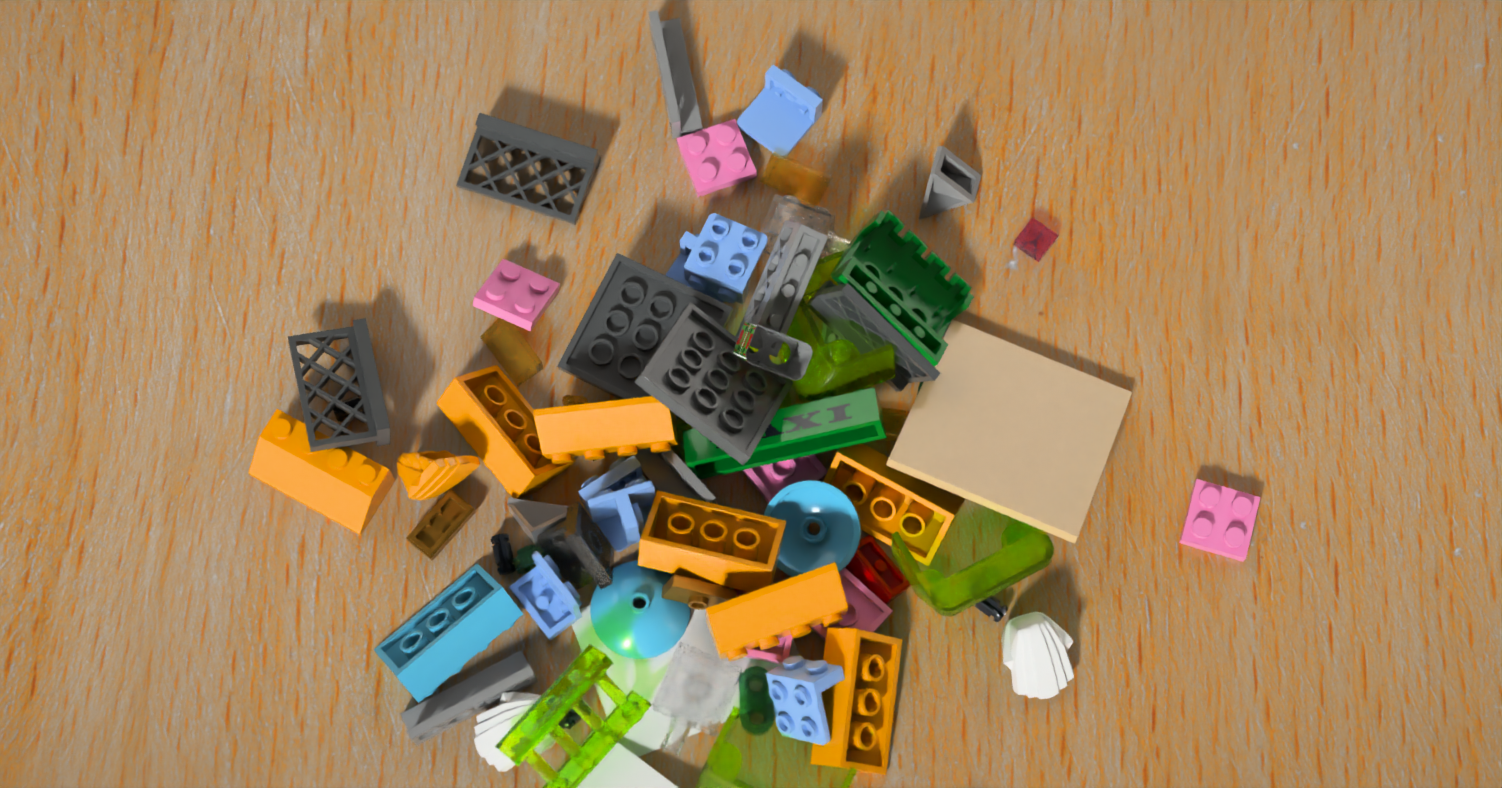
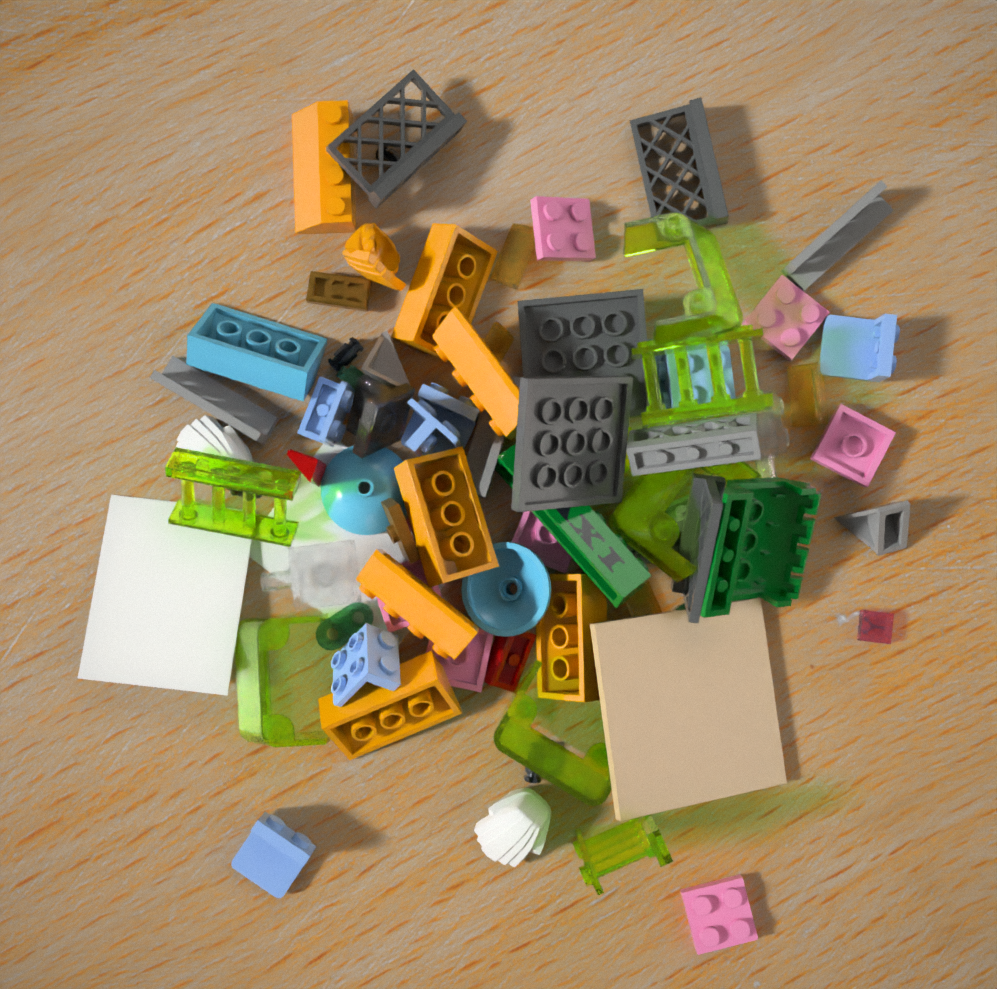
camera: 60 degrees right, 15 degrees up
(584, 635) = (309, 466): none -> red slope
(667, 205) = (711, 307): none -> clear neon green windscreen
(746, 271) = (721, 402): none -> clear neon green fence
(793, 368) = (626, 495): light grey piece -> none
(863, 167) = (852, 445): none -> bright pink plate
(1100, 536) = (619, 848): none -> clear neon green fence

